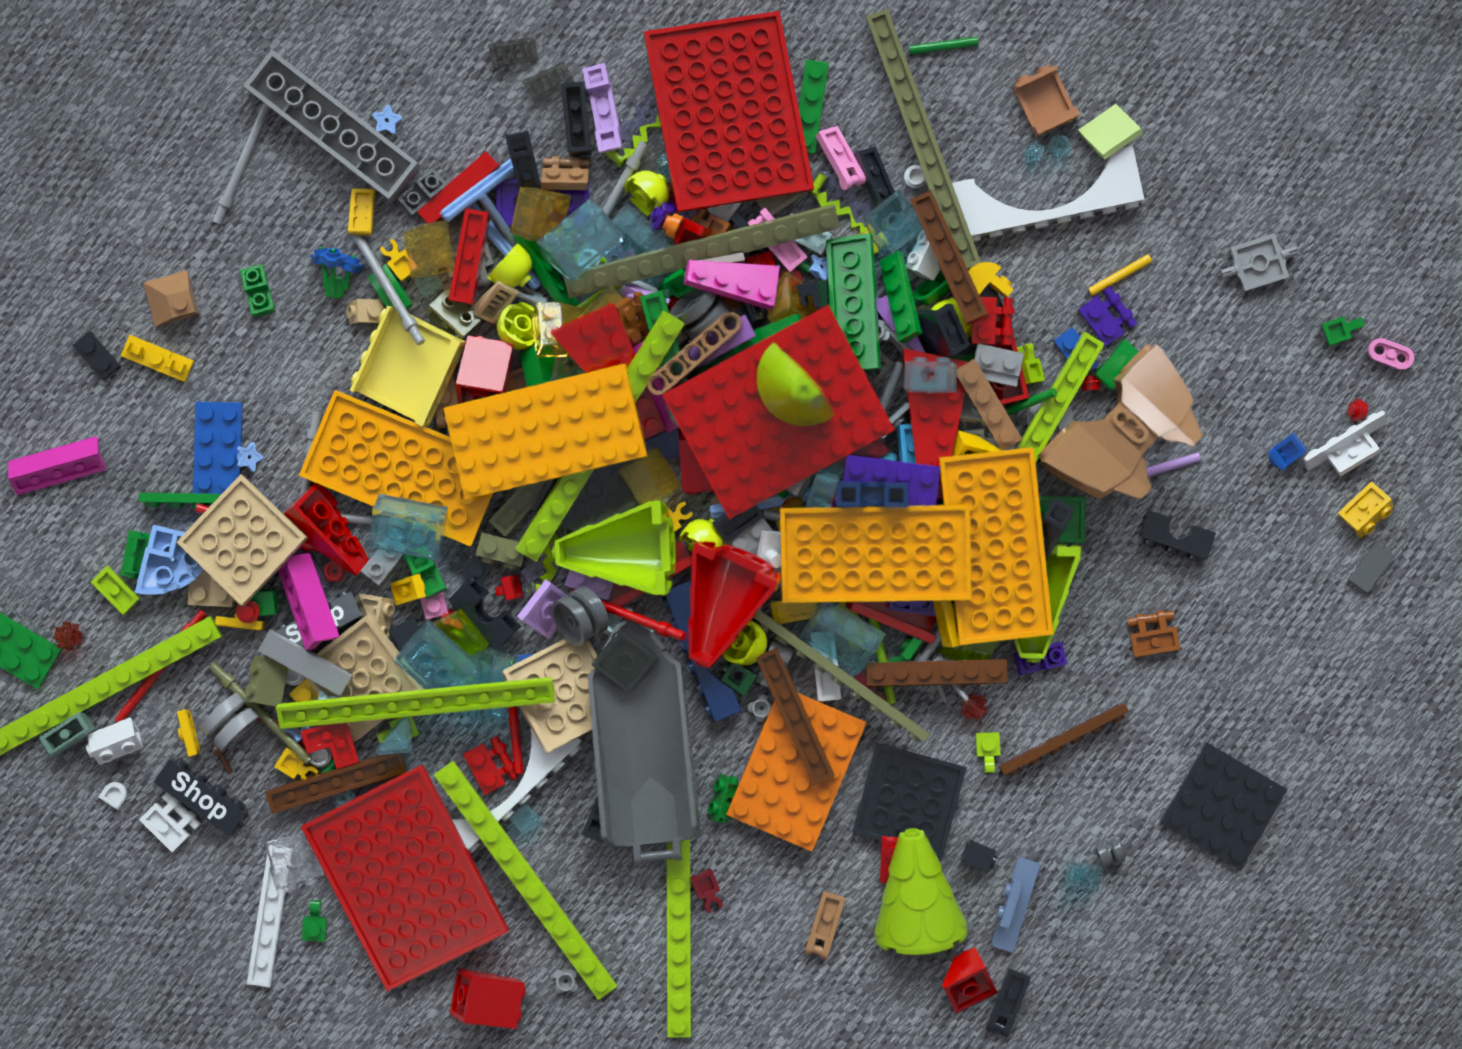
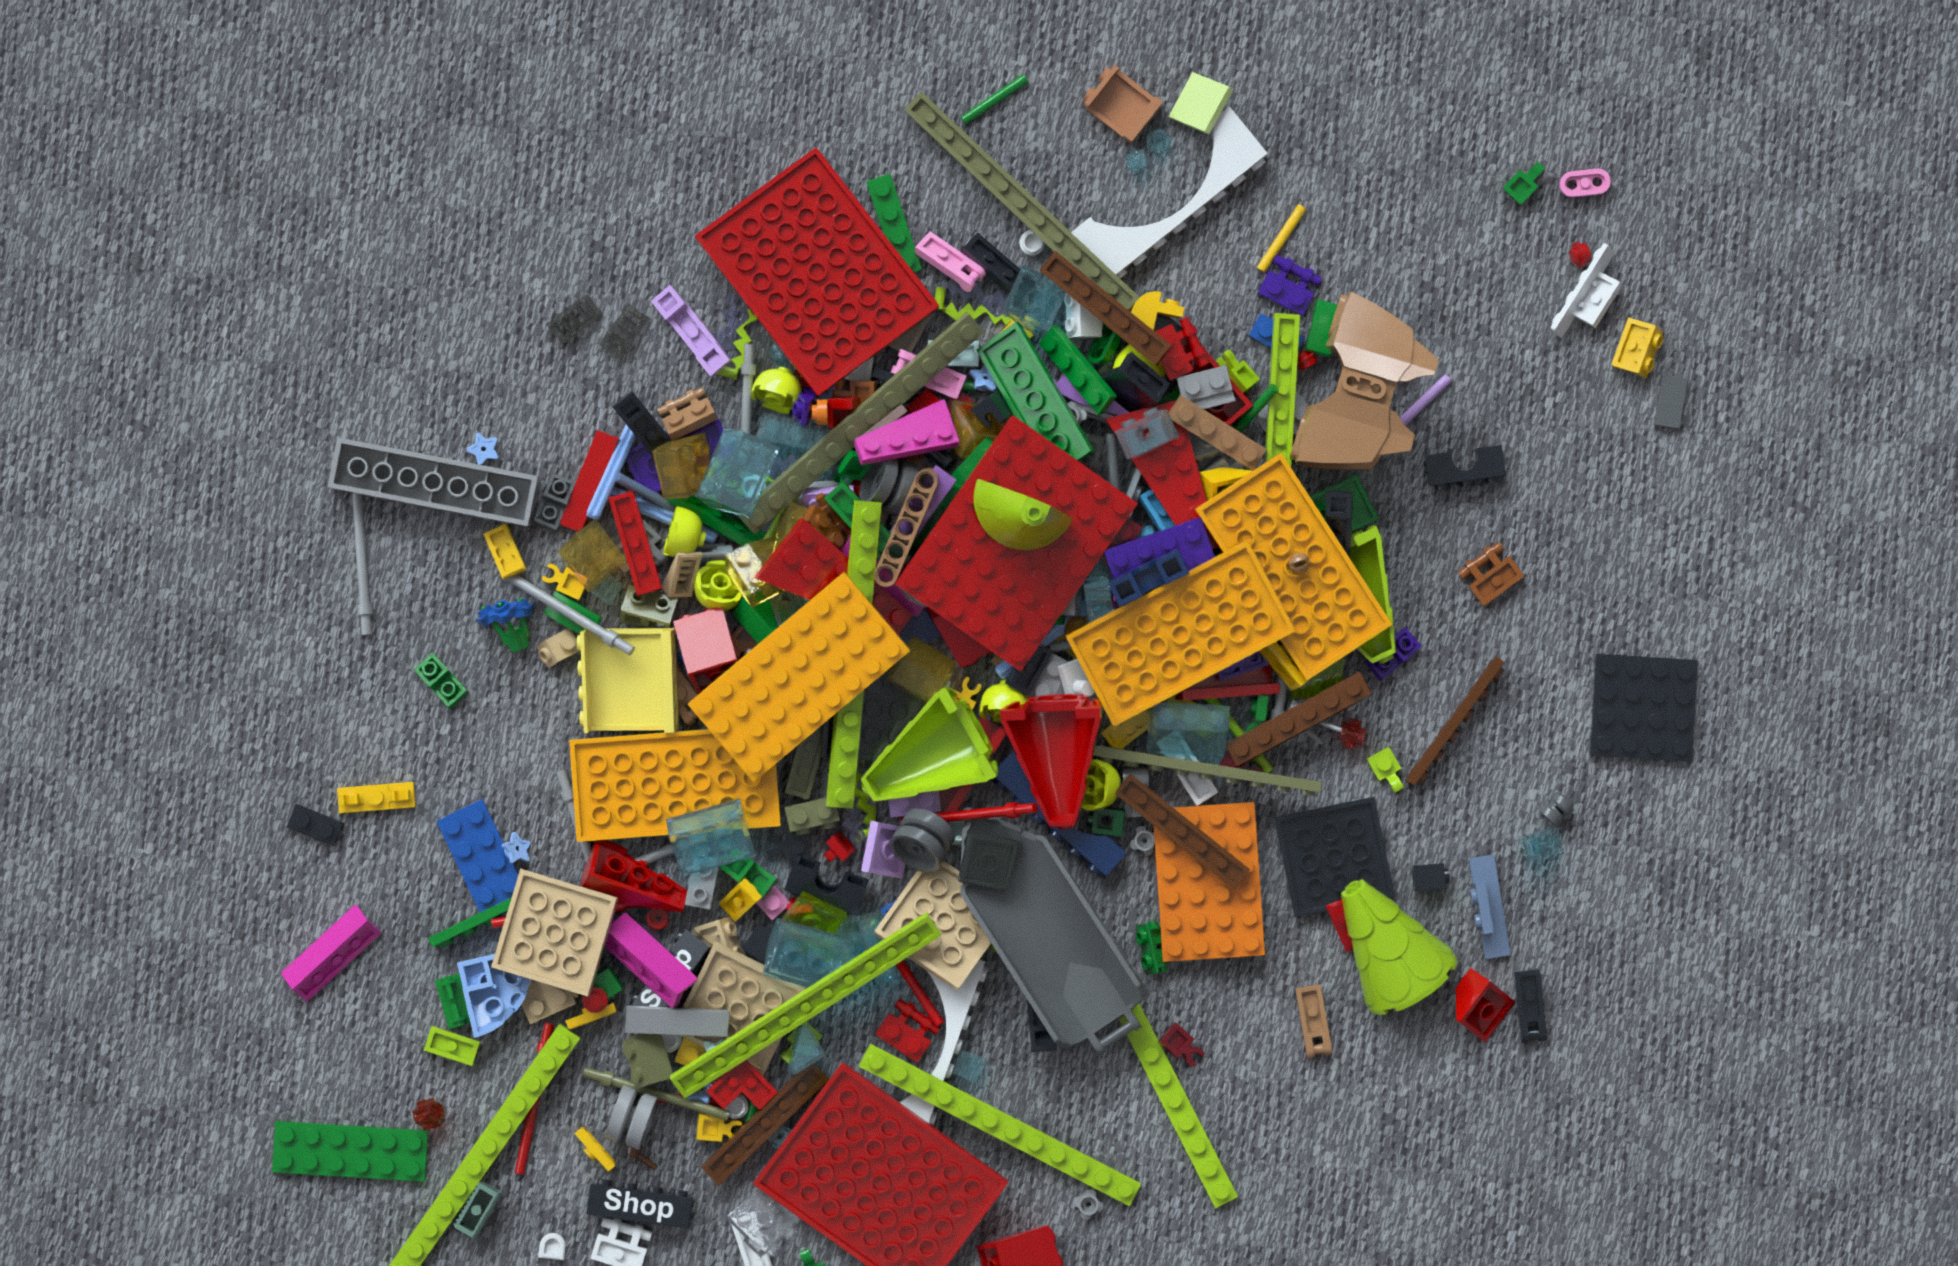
camera: 30 degrees left, 0 degrees up
(114, 741) = (527, 1194): white brick -> none
(171, 298) = (359, 731): medium nougat slope -> none
(576, 119) = (671, 354): black brick -> none
(1003, 540) = (1297, 557): none -> medium nougat hinge
(1259, 262) = (1411, 158): light grey plate -> none
(1286, 451) = (1531, 330): blue bracket -> none

